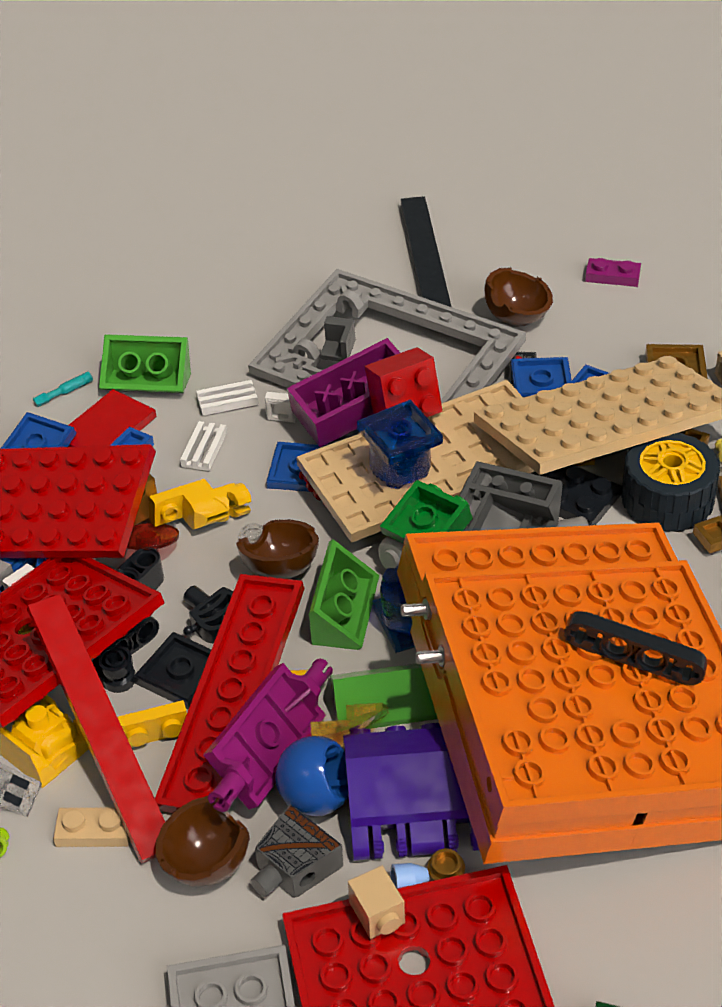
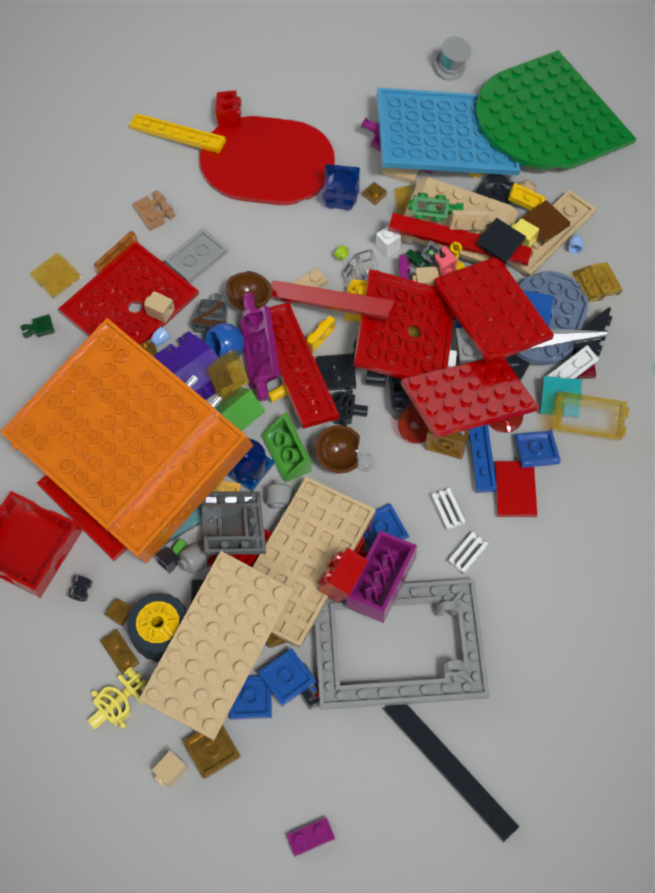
camera: 145 degrees right, 20 degrees up
(64, 388) = (568, 502): teal piece -> none
(145, 363) = (530, 535): bright green slope -> none
(199, 504) = (404, 459): yellow plate -> none
(279, 407) = (426, 558): white tile -> none
(339, 338) = (428, 620): dark grey panel -> none
(400, 443) = (312, 527): clear blue piece -> none
(426, 511) = (267, 499): green plate -> none
(517, 296) = (347, 743): reddish brown cylinder -> none
(637, 643) = (96, 436): black beam -> none

